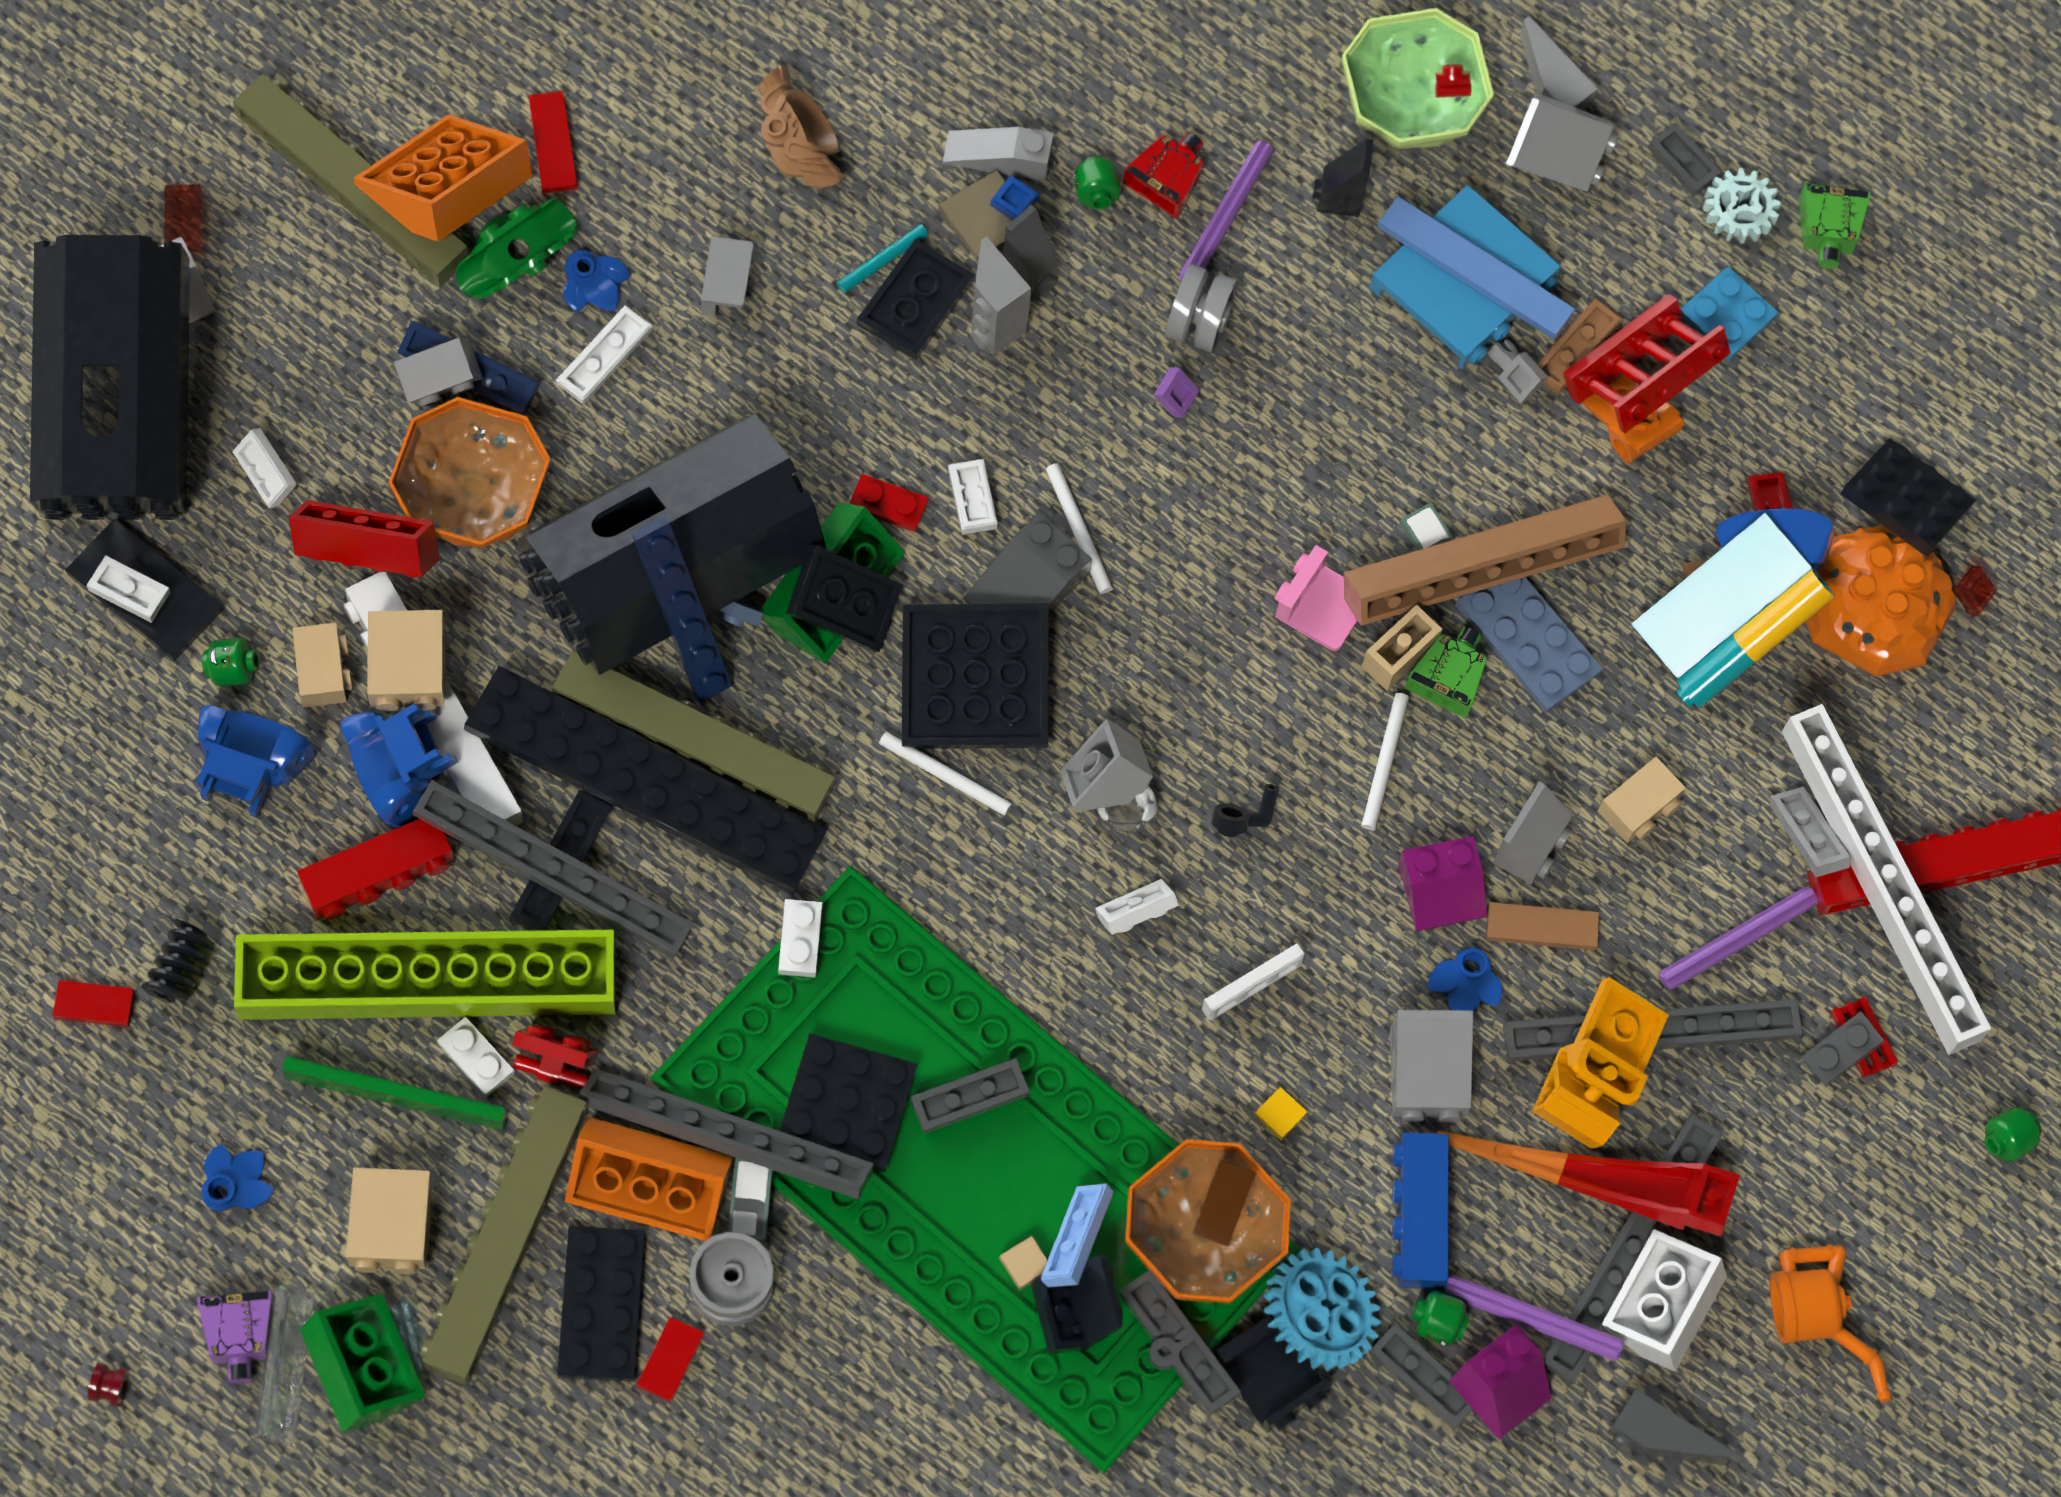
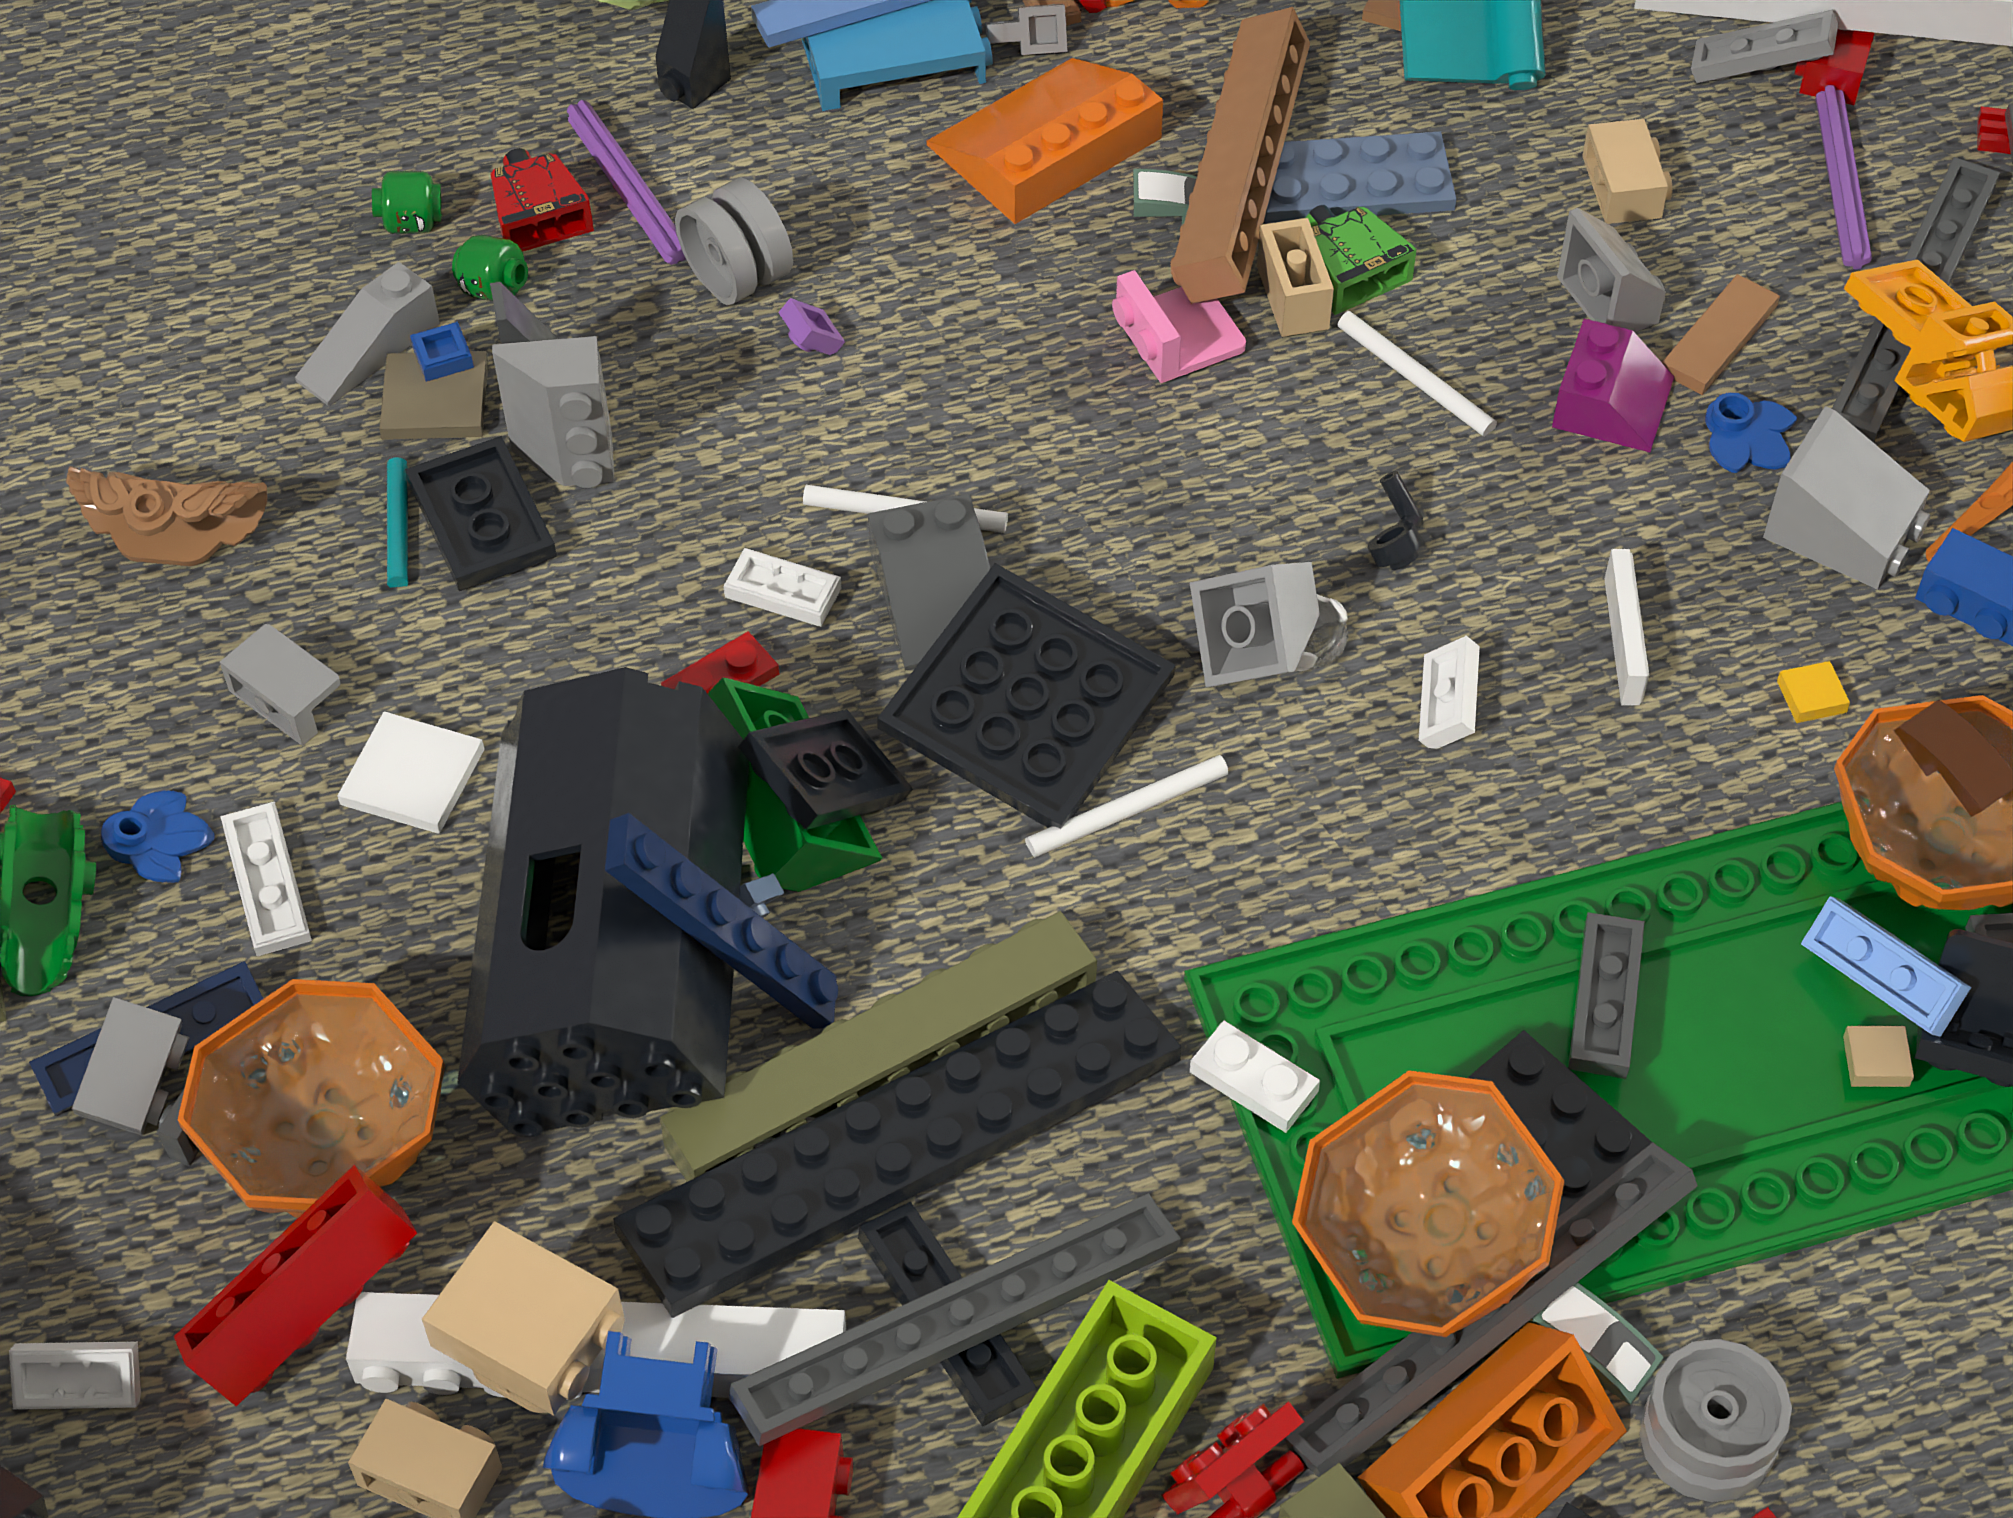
camera: 50 degrees left, 15 degrees down
(719, 382) = (411, 772): none -> white tile
(746, 1063) = (1428, 1204): none -> clear light blue rock
(1118, 102) = (407, 202): none -> green head
(1434, 433) = (1052, 135): none -> orange slope

